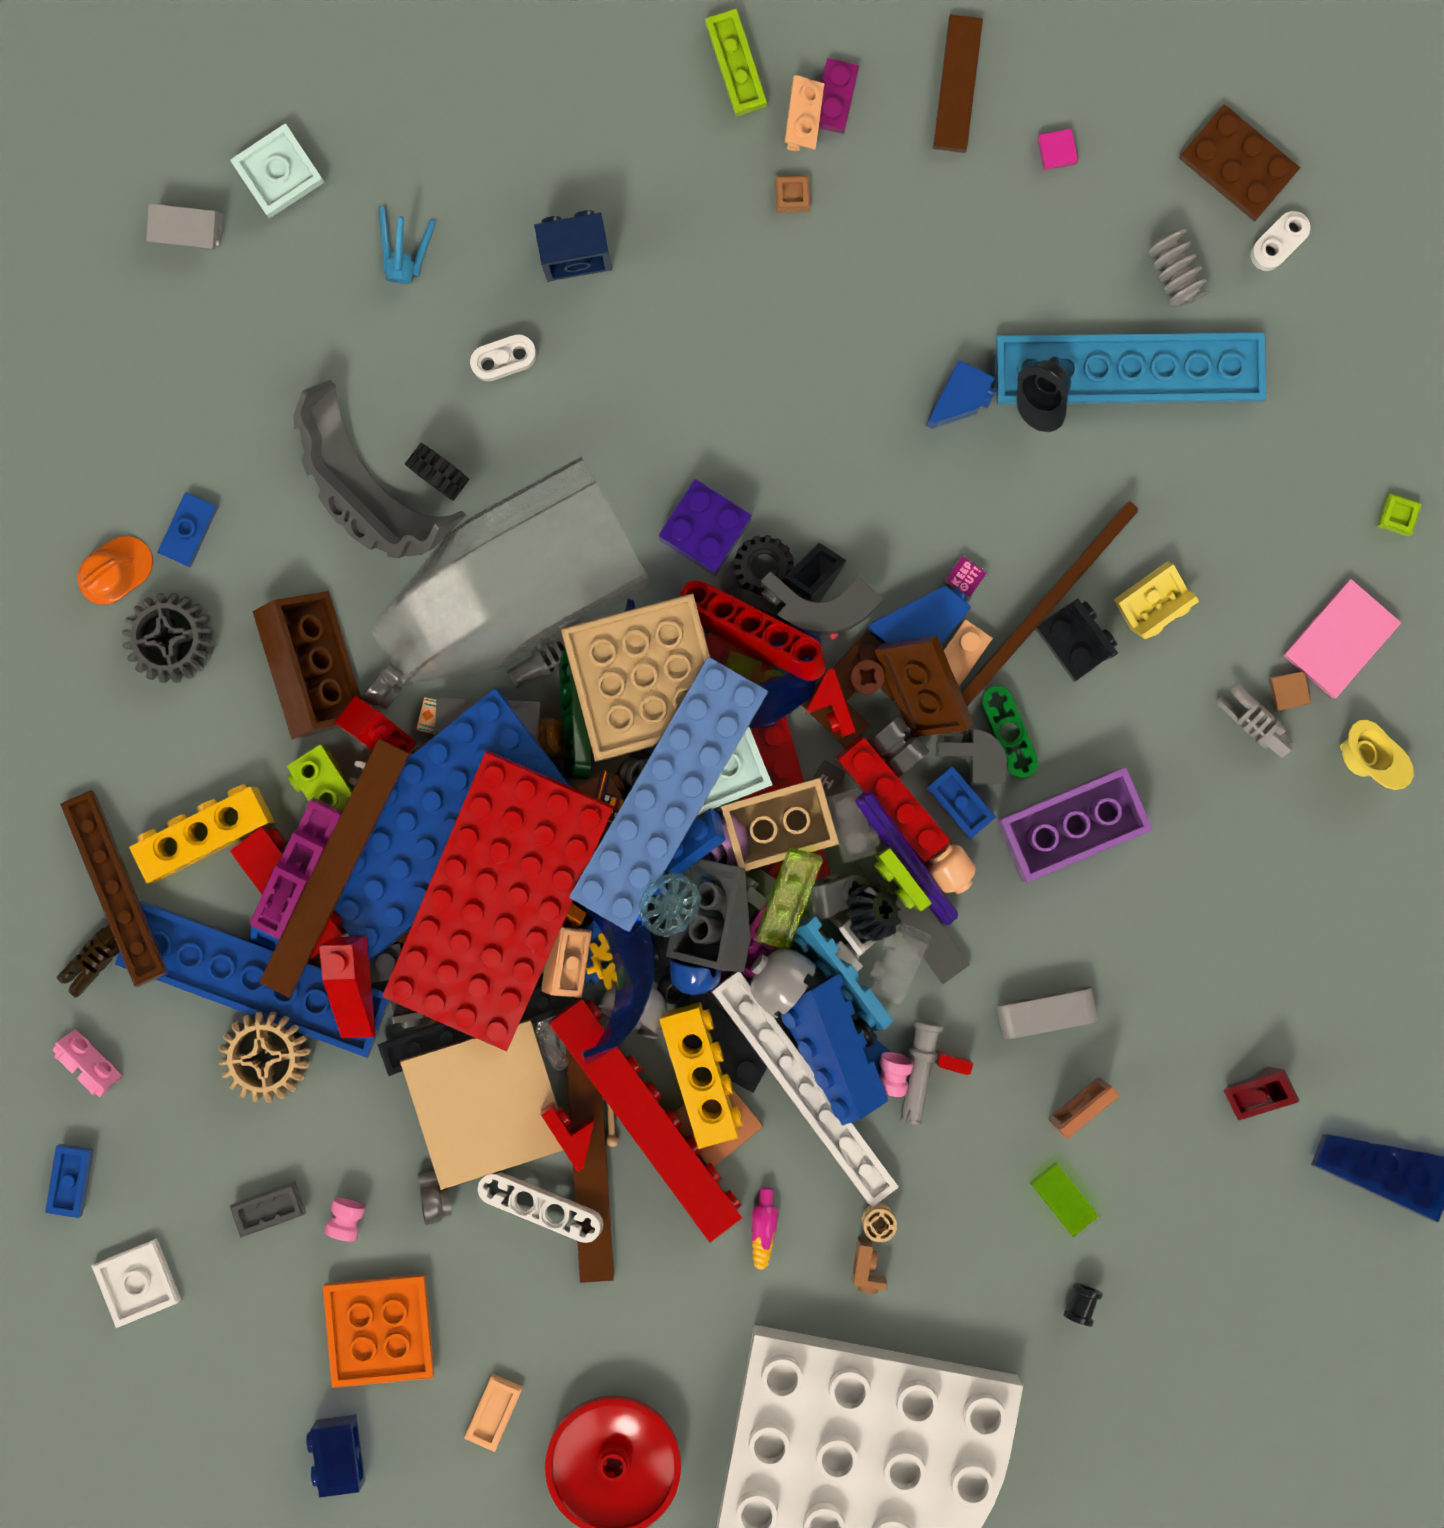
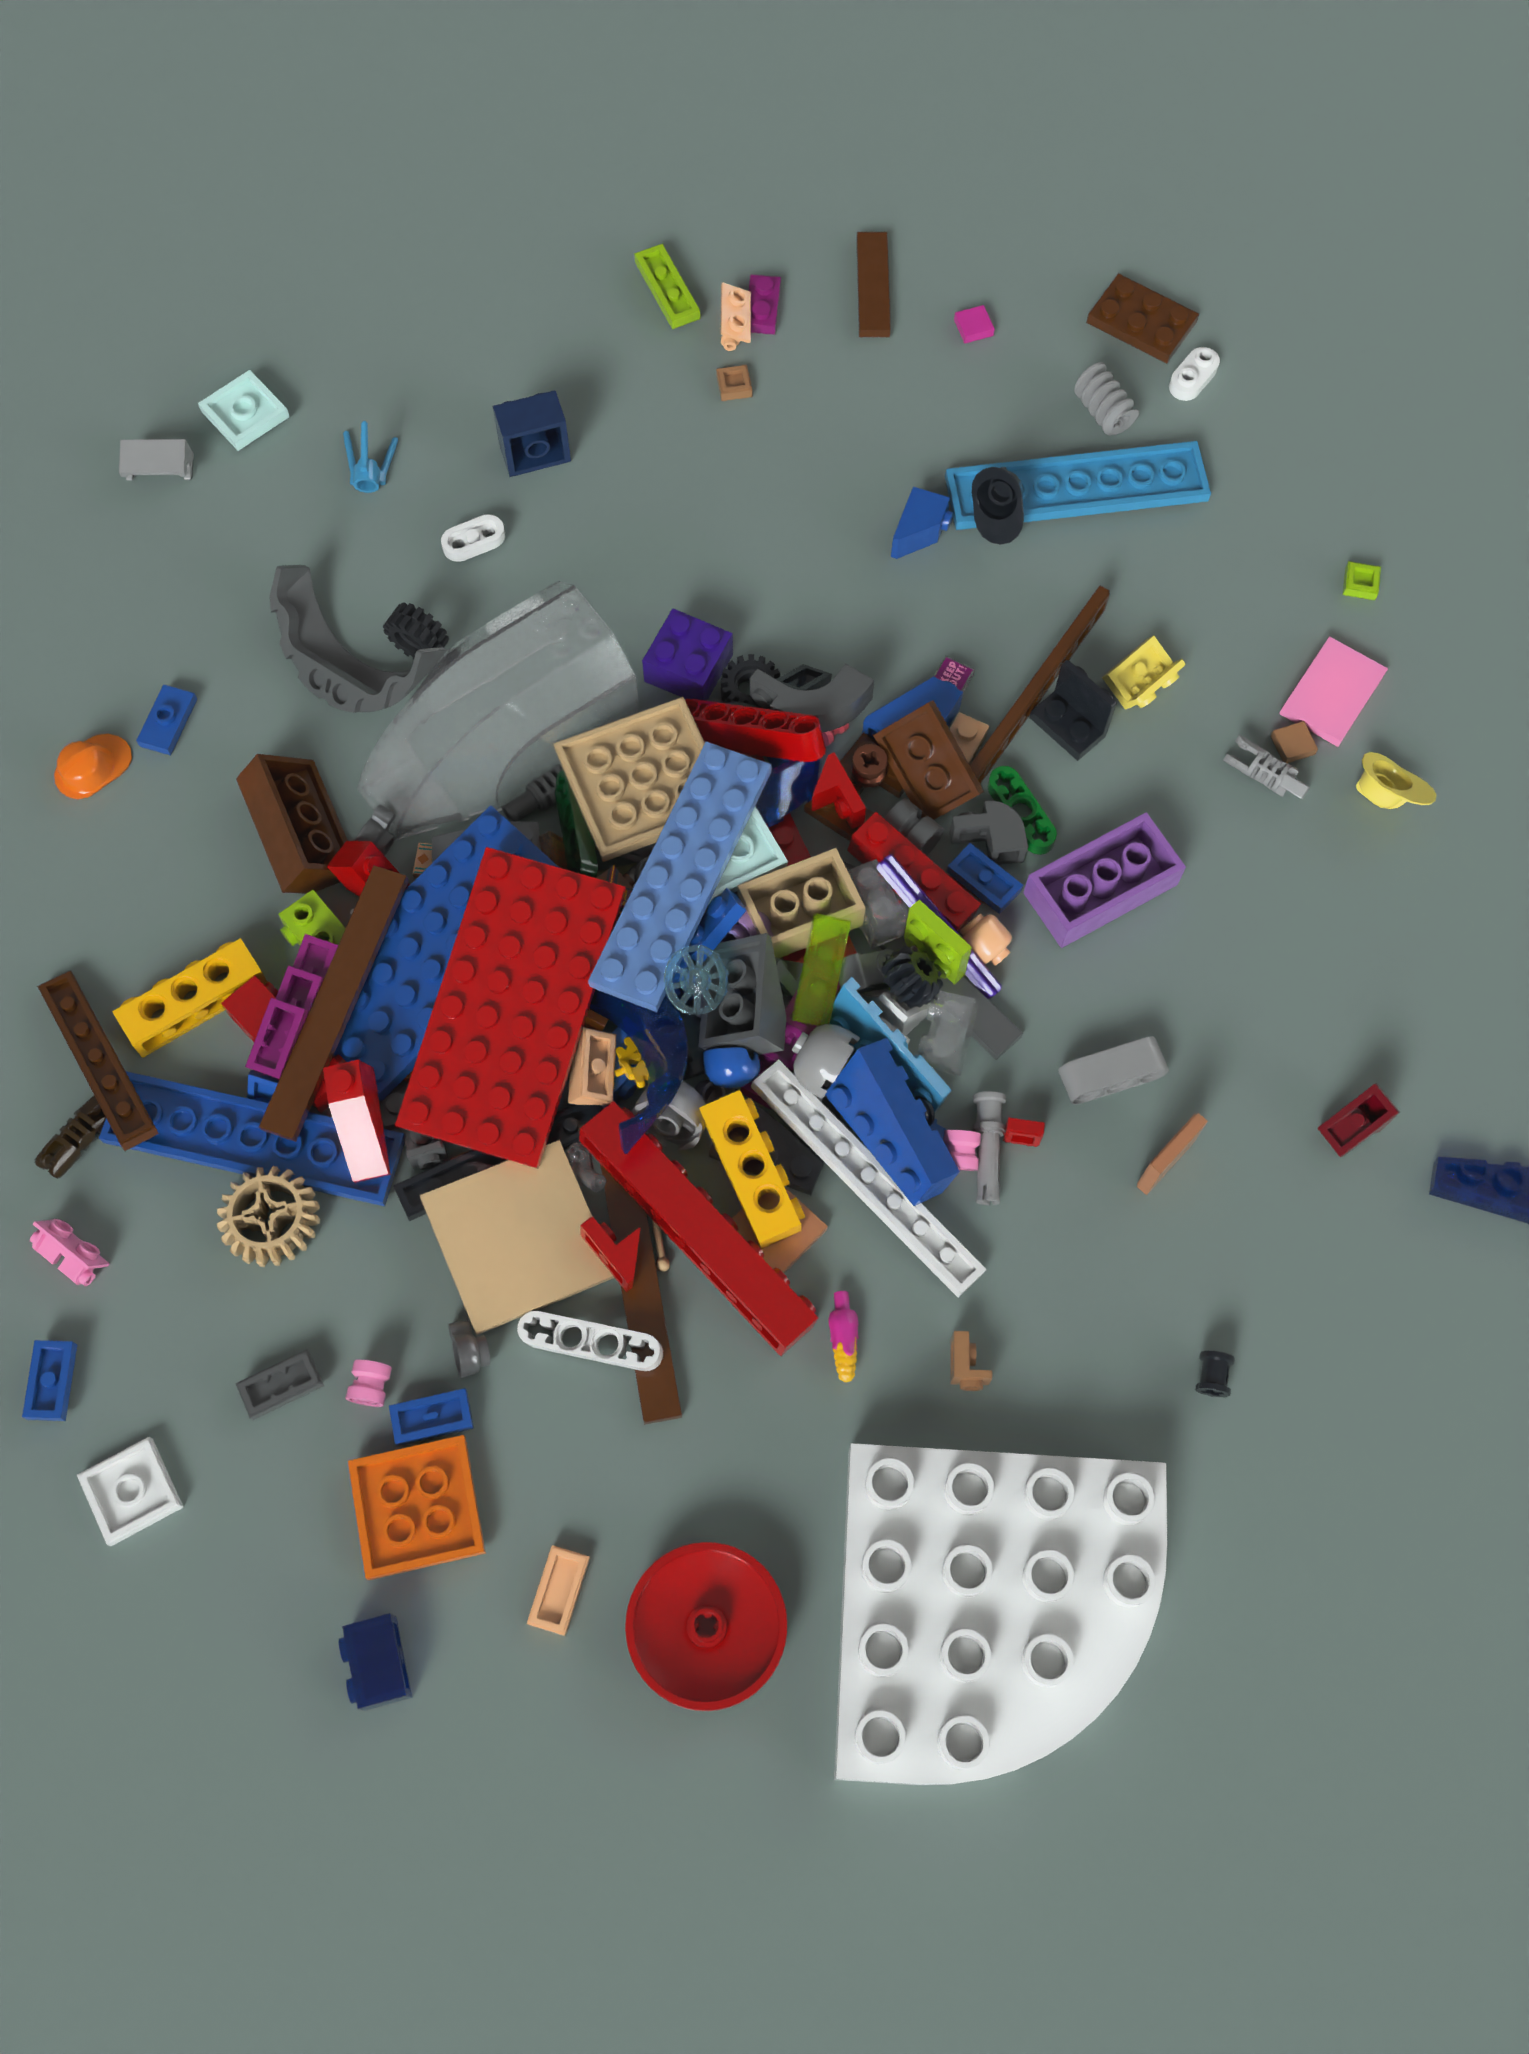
camera: 10 degrees left, 20 degrees down
(164, 625) = (131, 812): dark grey gear -> none
(396, 1254) = (431, 1417): none -> blue plate
(875, 1218) = (969, 1317): tan wheel -> none
(1064, 1199) = (1171, 1266): clear neon green tile -> none

